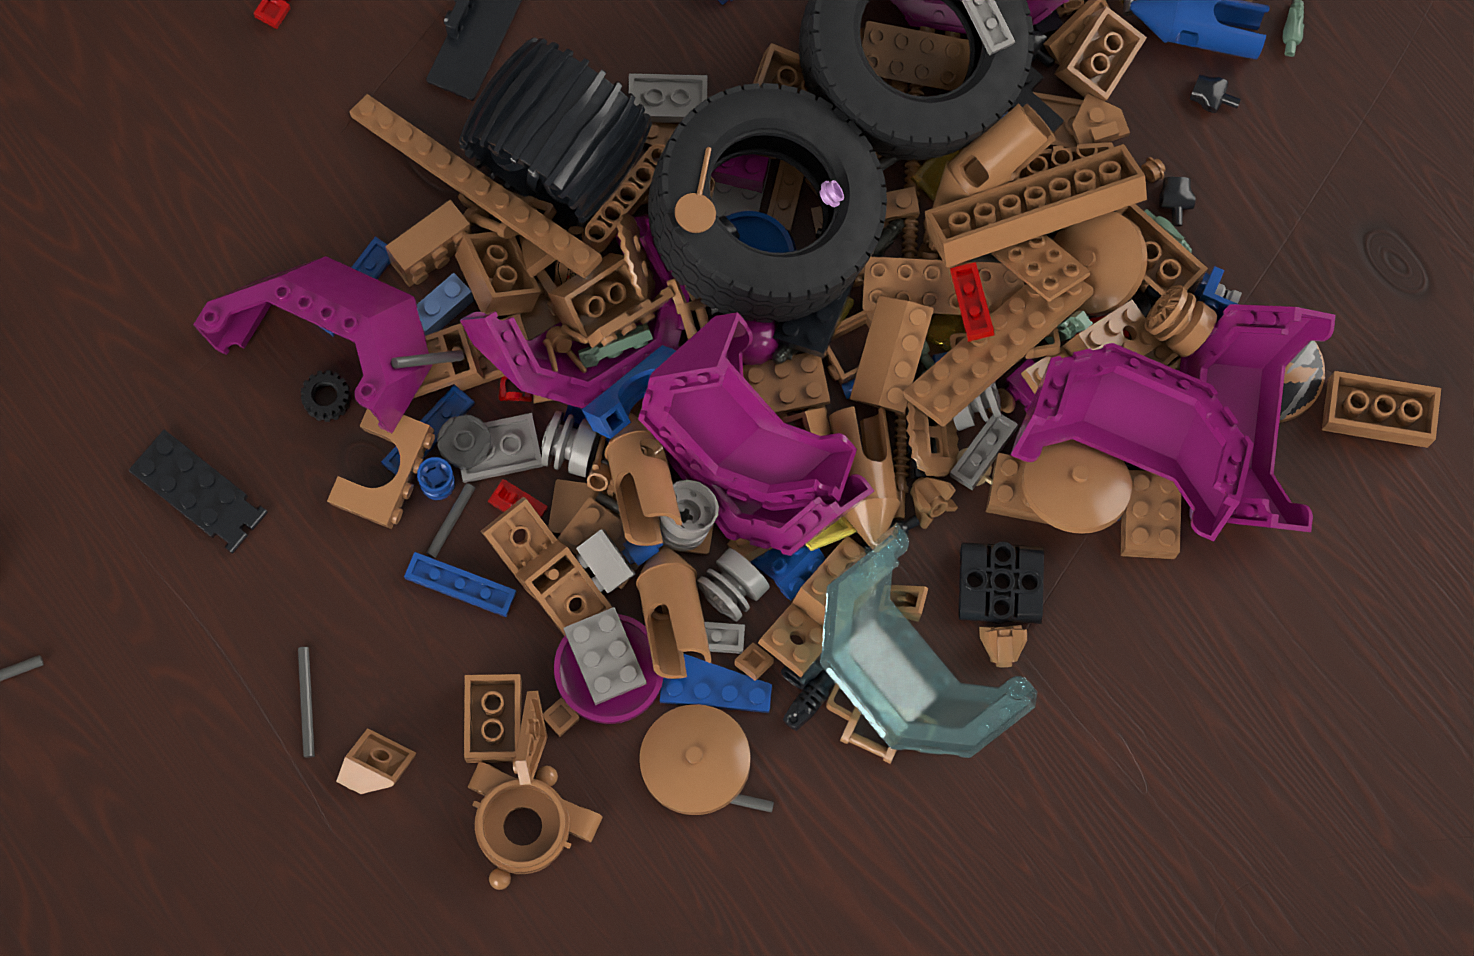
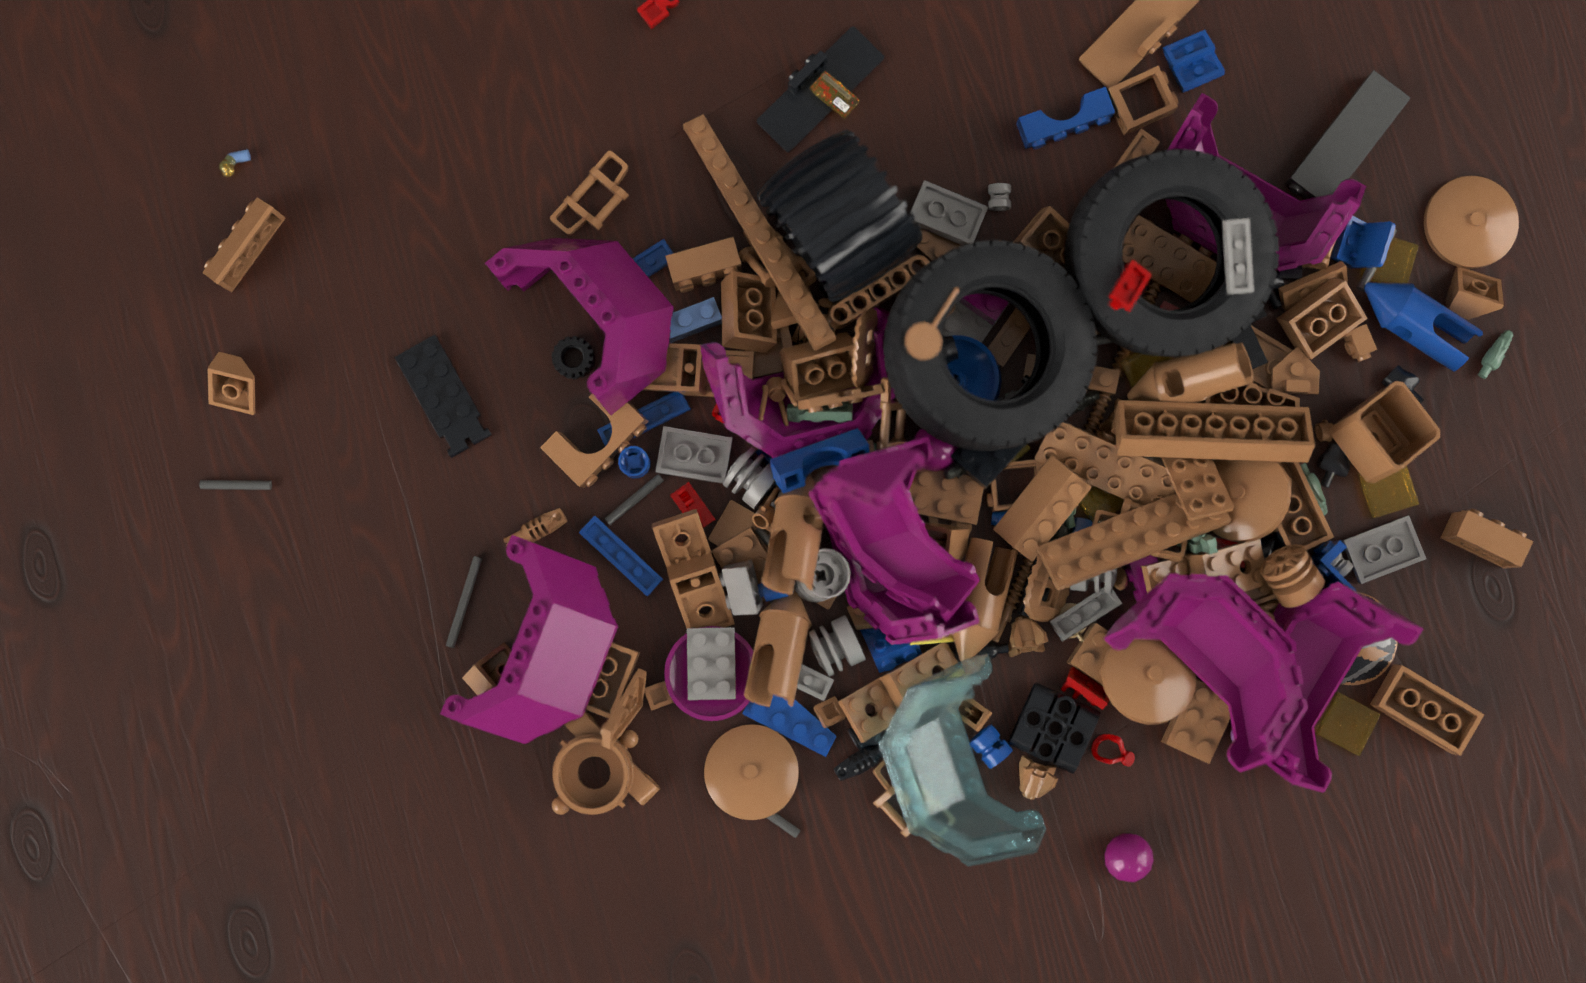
camera: 25 degrees right, 10 degrees up
(274, 198) = (595, 174): none -> medium nougat bar
(356, 591) = (540, 526): none -> medium nougat hinge
(427, 359) = (660, 368): dark grey bar -> none
(429, 713) = (553, 655): none -> magenta windscreen
(464, 441) = (668, 440): dark grey tile -> none
(499, 22) = (834, 94): none -> tile
(715, 61) = (999, 197): none -> light grey wheel
(831, 193) = (1044, 365): lavender plate -> none
(885, 82) = (1129, 286): none -> red plate
(941, 628) = (990, 746): none -> blue wheel
(972, 301) = (1125, 493): red plate -> none
(1027, 529) = (1087, 687): none -> red plate
(1091, 584) = (1127, 757): none -> red piece
(1137, 686) = (1128, 857): none -> magenta piece
(1149, 67) = (1359, 343): none -> medium nougat brick
(1213, 141) = (1385, 432): none -> medium nougat plate
(1244, 203) = (1390, 493): none -> clear yellow tile
(1266, 265) = (1384, 549): none -> light grey plate
(1308, 459) = (1348, 724): none -> clear yellow tile
(1365, 211) = (1487, 538): none -> medium nougat brick

